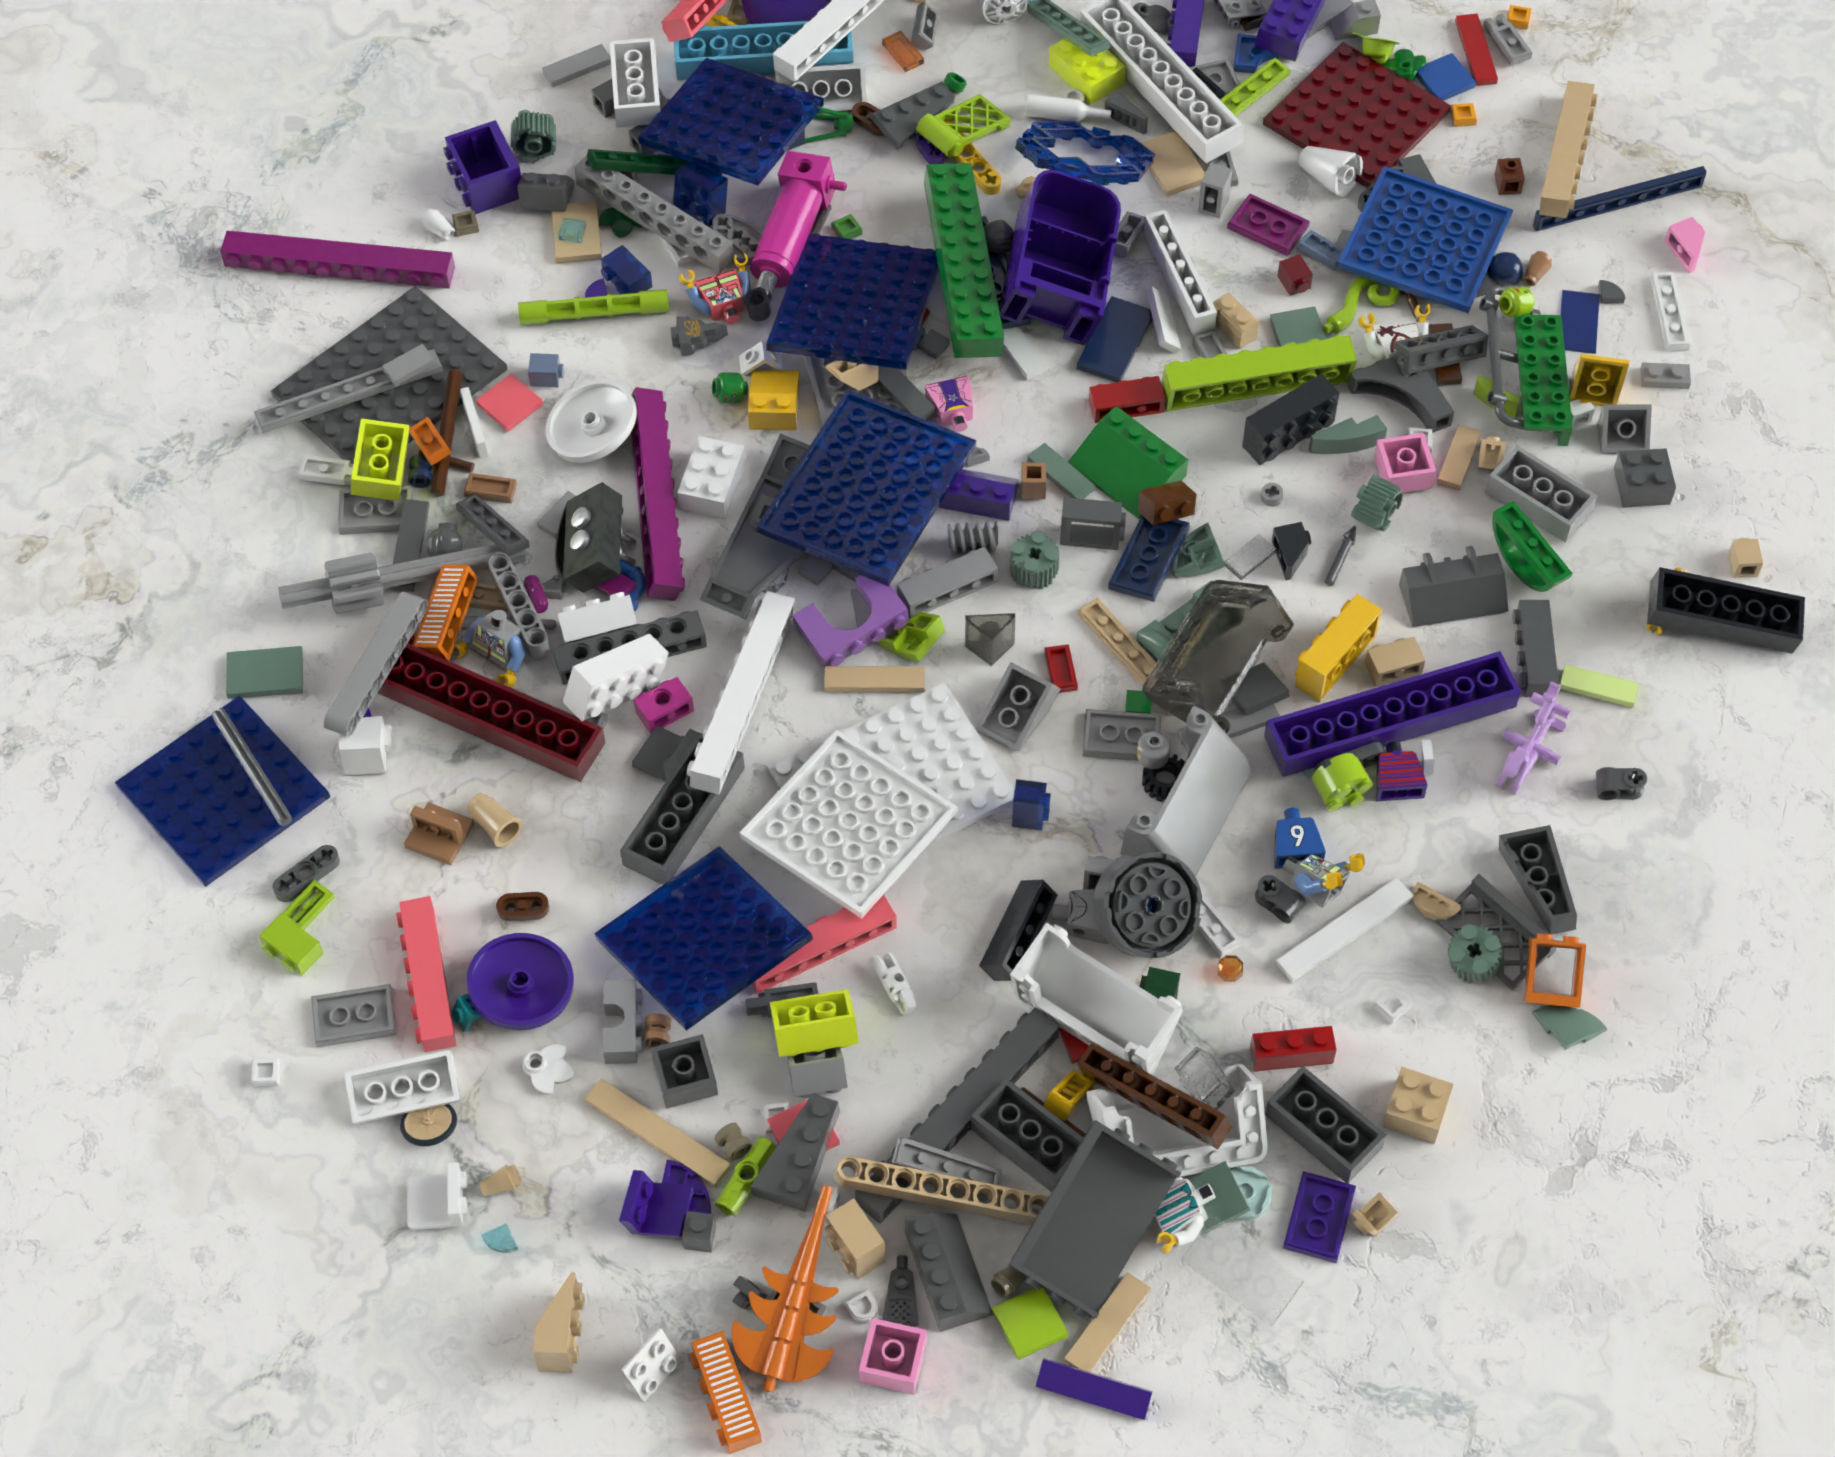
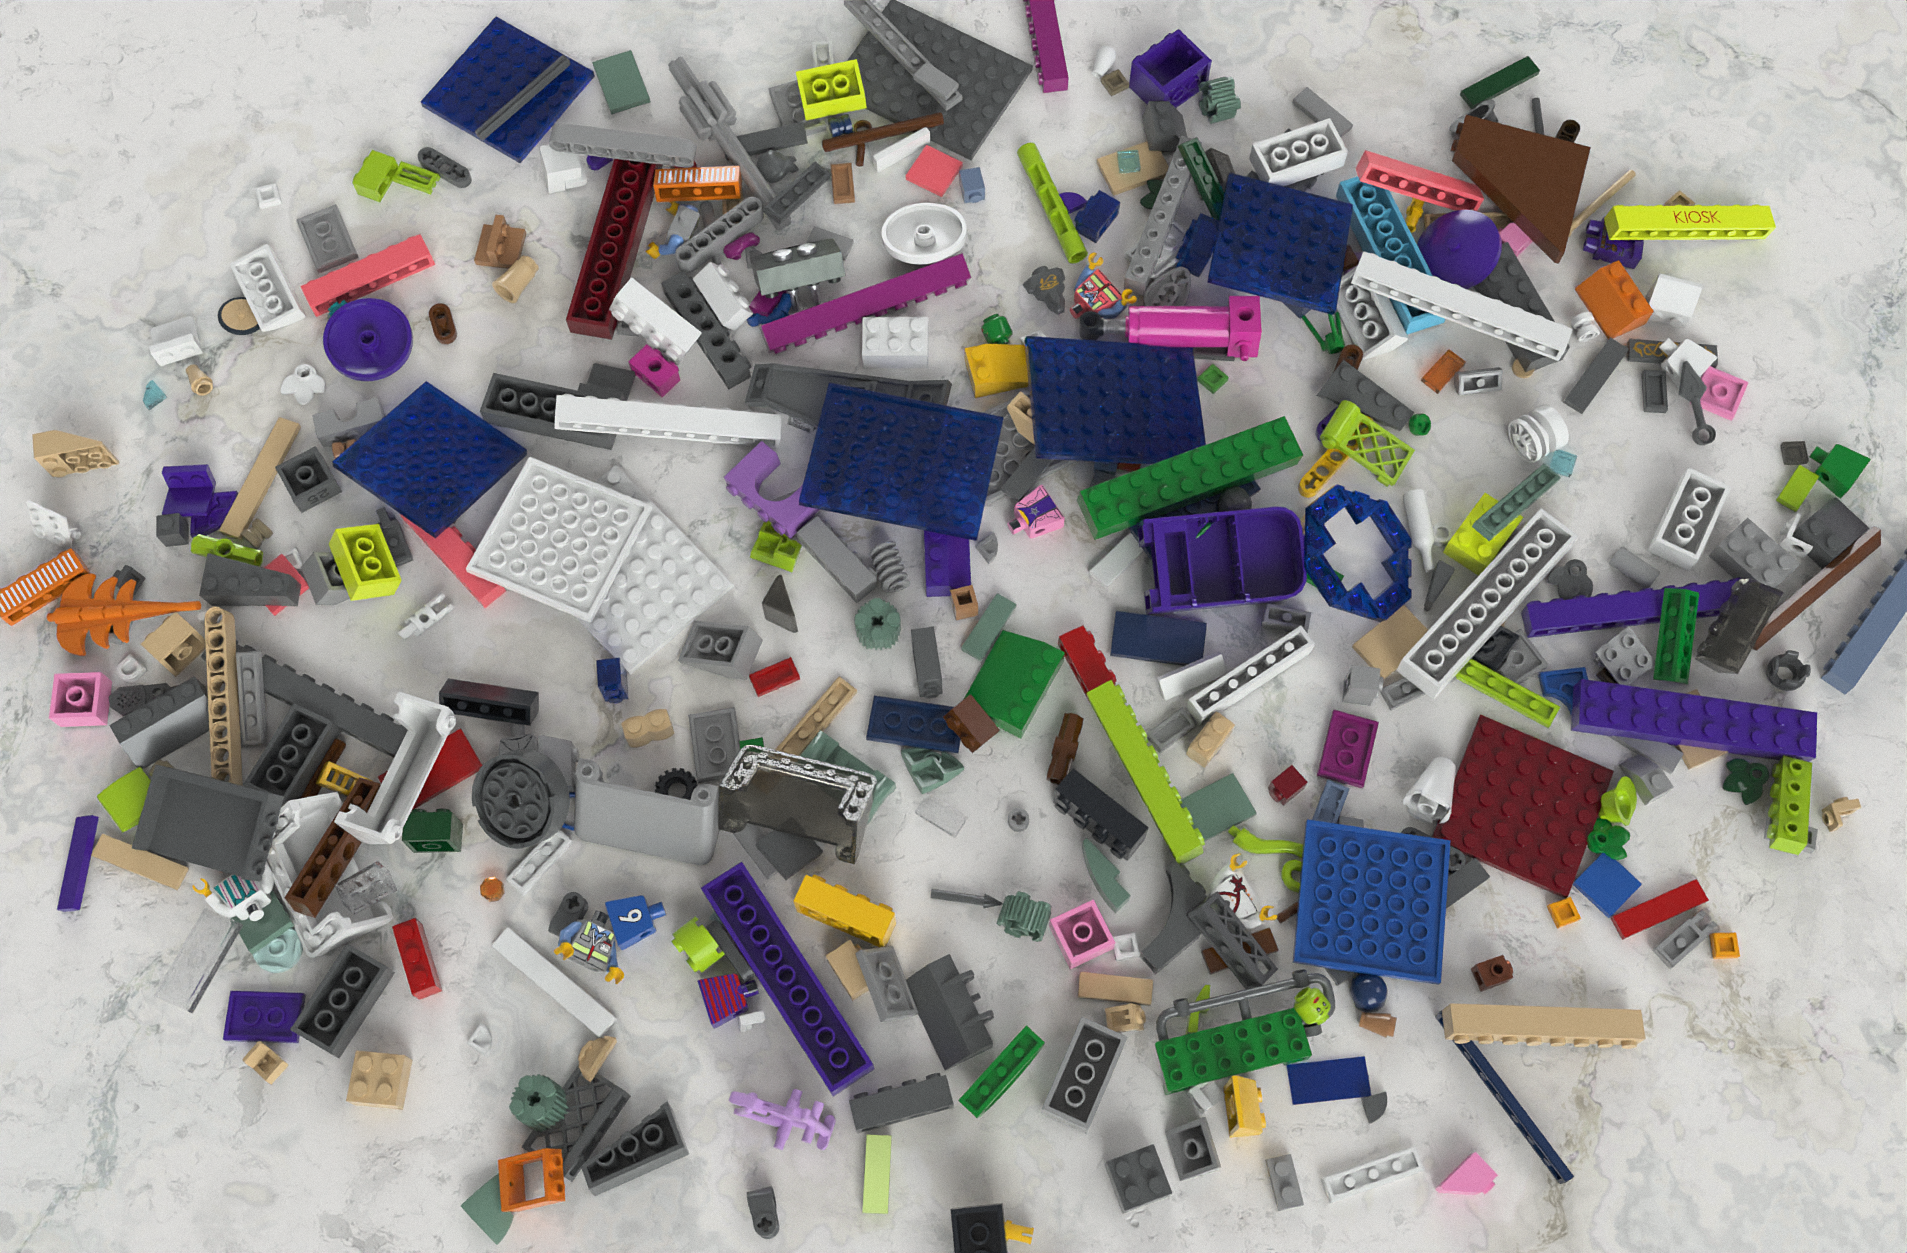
camera: 75 degrees right, 10 degrees up
(429, 441) = (862, 120): orange hinge -> none
(874, 679) = (724, 527): tan tile -> none
(1090, 787) = (643, 729): none -> tan brick
(1153, 750) = (684, 768): light grey head -> none
(1210, 437) = (1065, 748): none -> reddish brown piece
(1291, 546) = (956, 849): black slope -> none
(1418, 629) = (886, 983): none -> light grey tile

